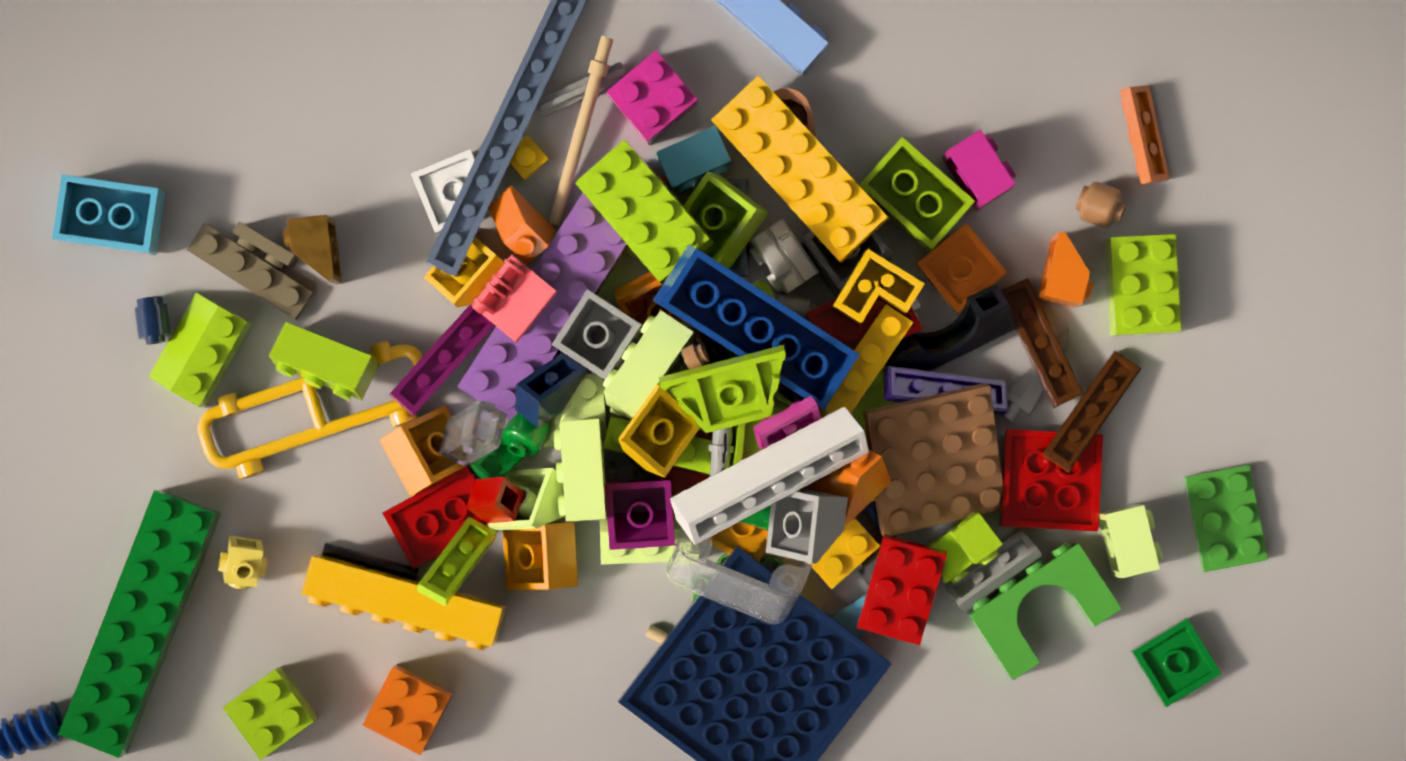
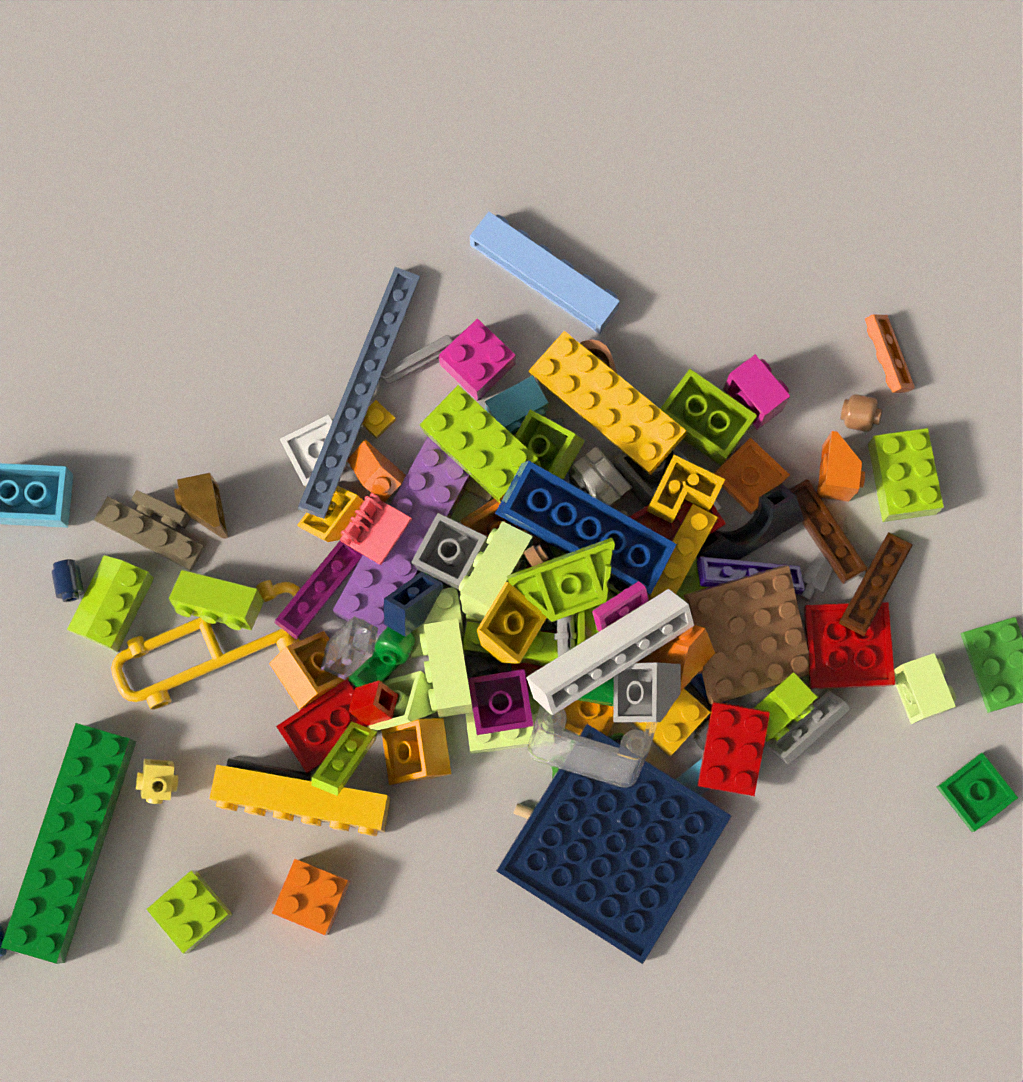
camera: 10 degrees left, 10 degrees down
(598, 70) = (430, 340): tan bar -> none
(998, 615) = (818, 767): bright green arch -> none

